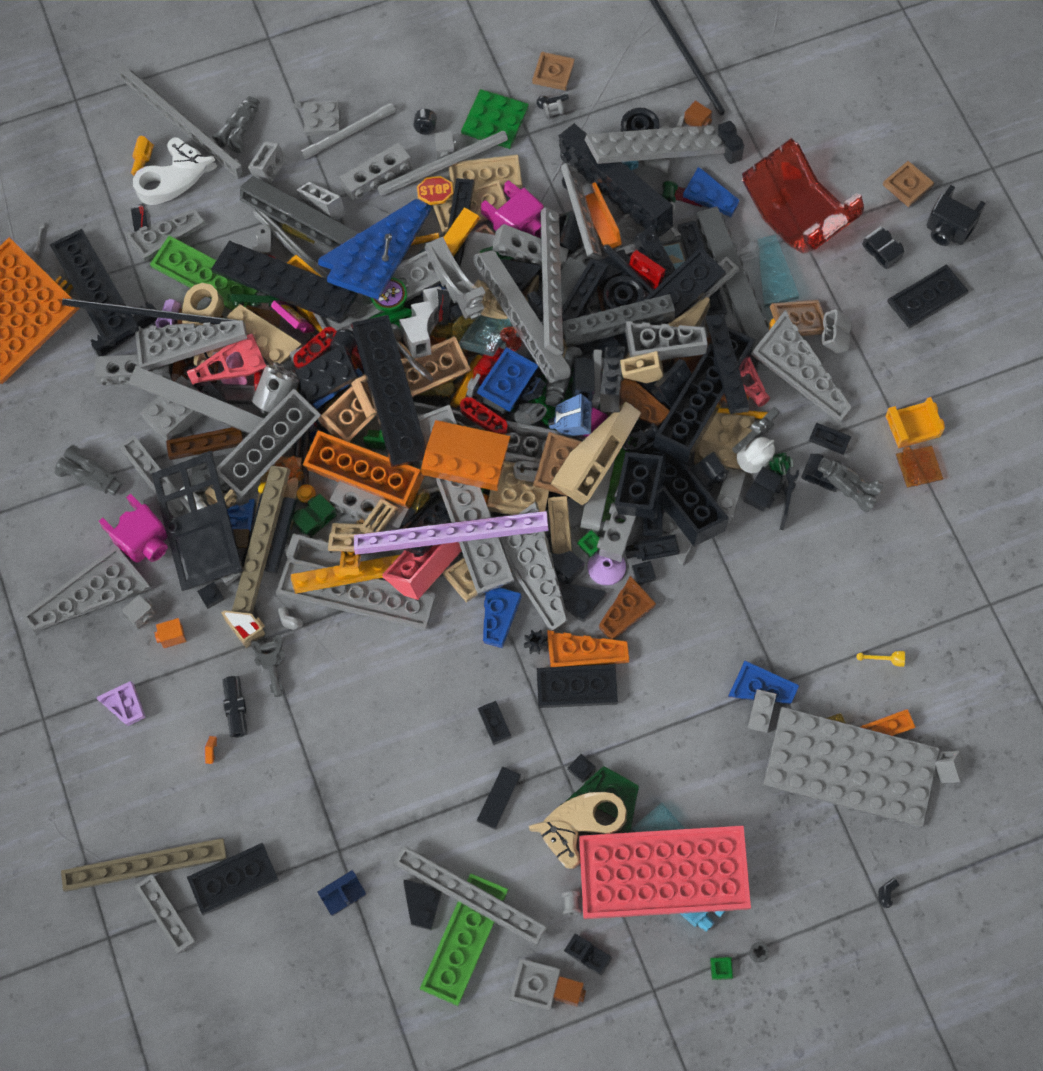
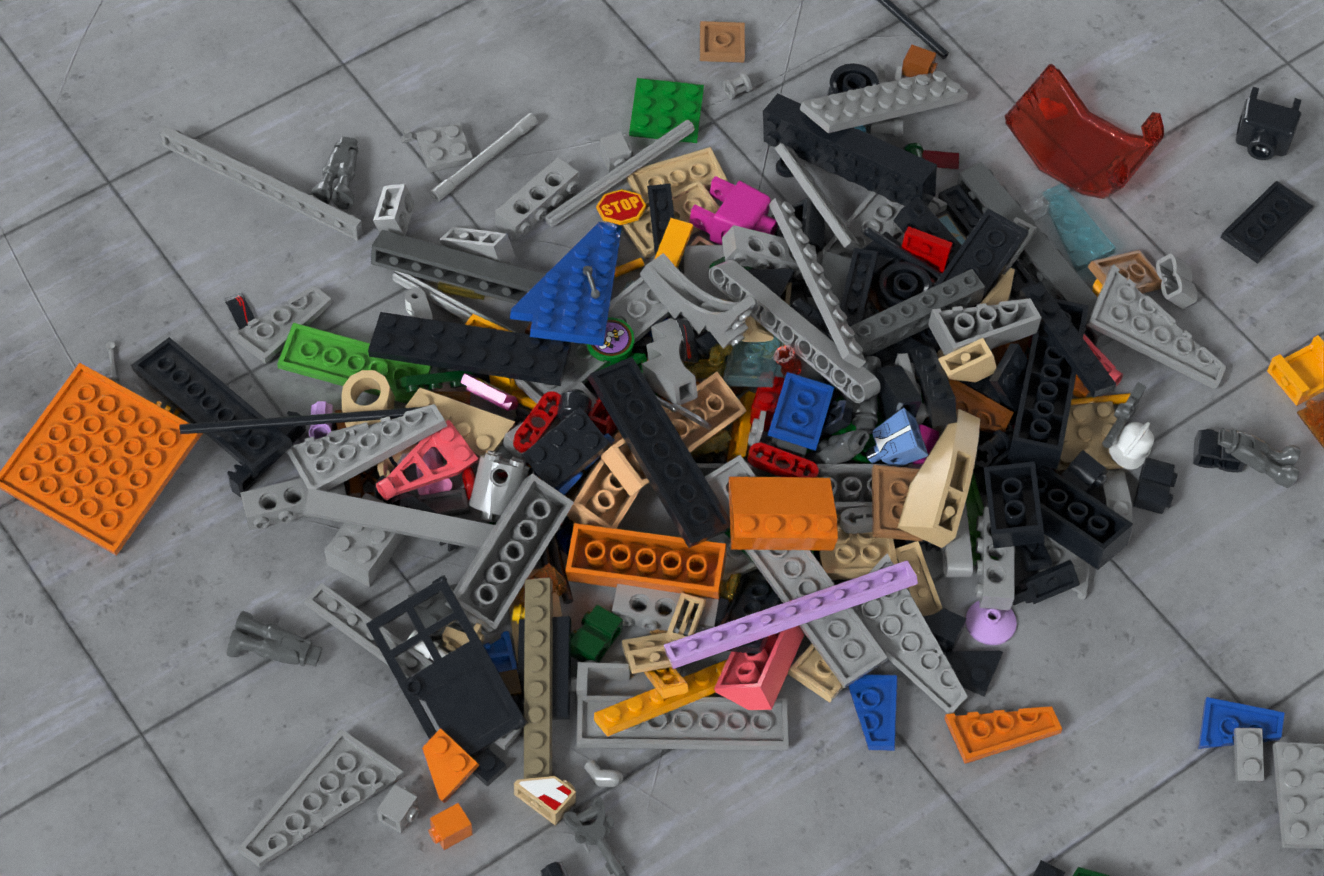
camera: 20 degrees left, 10 degrees down
(138, 533) = (370, 704): dark pink piece -> none
(141, 153) = (221, 232): light orange arm -> none
(175, 179) = (277, 254): white animal -> none
(182, 587) = (447, 764): none -> orange wing
(203, 442) = (418, 574): reddish brown plate -> none
(305, 493) = (575, 609): light orange plate -> none
(374, 440) = (647, 522): green panel -> none
(425, 120) = (580, 127): black head -> none
(494, 723) = (917, 846): black plate -> none
(538, 637) = (935, 732): black gear -> none
(548, 100) = (718, 78): black bar -> none
(577, 686) = (1006, 776): black plate -> none
(589, 543) = (962, 596): green plate -> none
(602, 219) = (848, 201): orange panel -> none
(626, 610) = (1036, 667): dark orange wing -> none
(644, 572) = (1042, 617): black plate -> none
(710, 193) = (964, 151): blue wing -> none
(733, 143) = (975, 86): black brick -> none
(781, 463) = (1166, 450): dark green gear -> none
(788, 491) = (1190, 490): black flag -> none
(830, 438) = (1212, 409): black plate -> none
(883, 247) = (1196, 175): black brick -> none
(908, 183) = (1197, 97): medium nougat plate -> none

